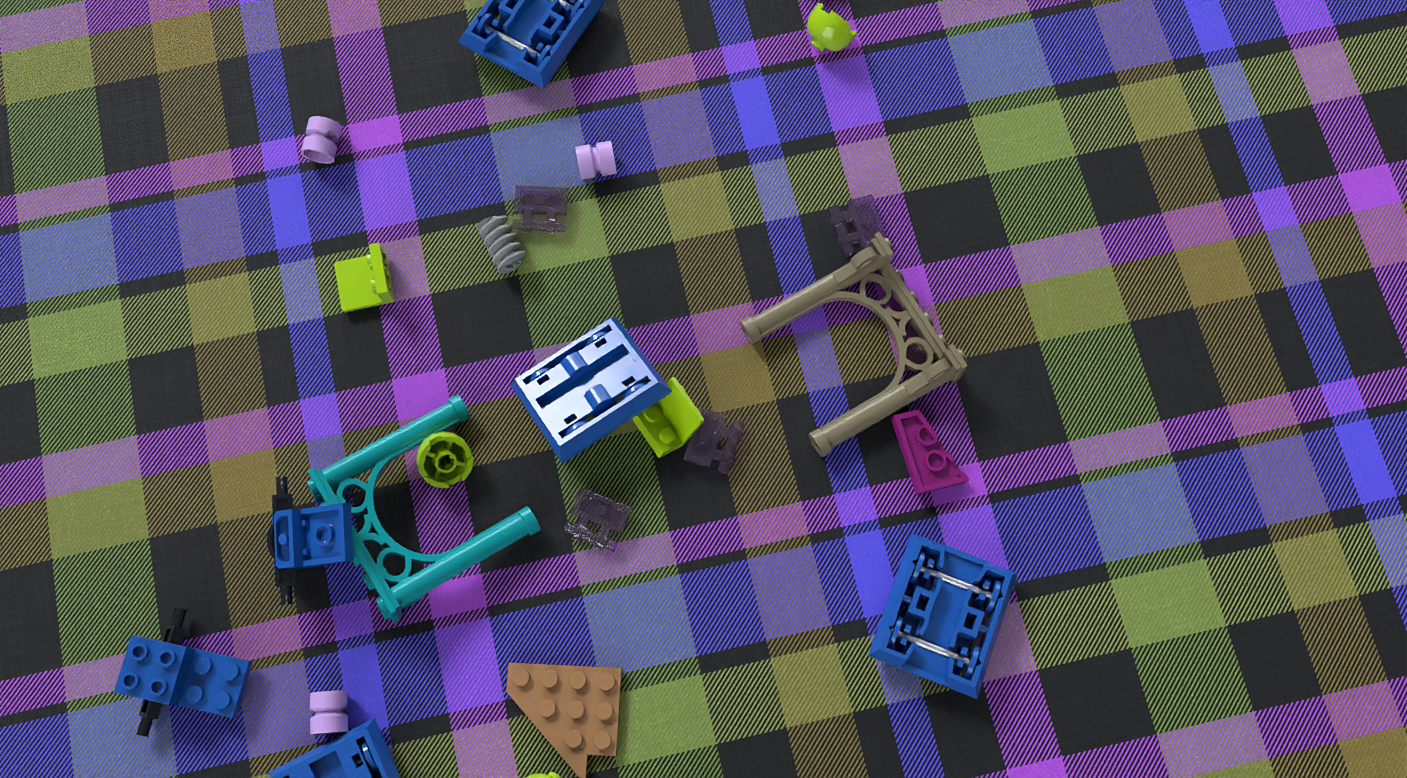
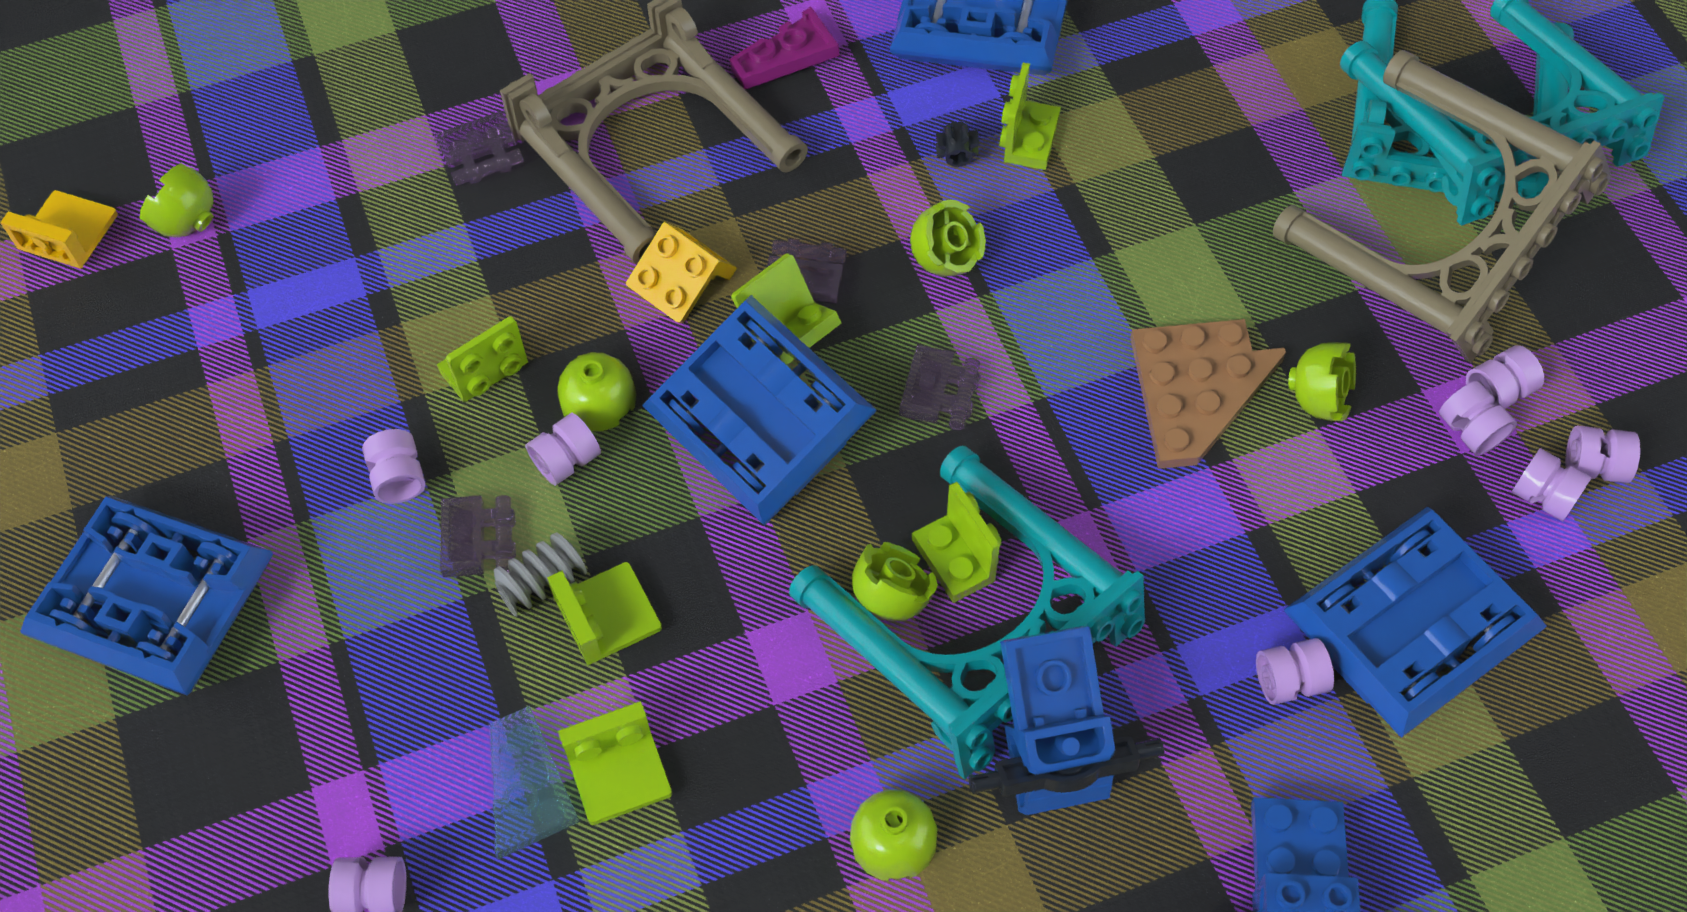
camera: 100 degrees left, 15 degrees down
(286, 437) = (893, 835): none -> lime cylinder
(356, 229) = (527, 786): none -> clear light blue wing
(465, 508) = (960, 546): none -> lime bracket
(468, 279) = (605, 611): none -> lime bracket
(587, 260) = (560, 451): none -> lavender wheel
(636, 290) = (596, 390): none -> lime cylinder
(672, 217) = (484, 360): none -> lime bracket
(712, 543) = (947, 239): none -> lime cylinder
(727, 354) = (676, 271): none -> yellow bracket
(809, 569) = (957, 144): none -> black gear
(820, 629) = (1029, 126): none -> lime bracket

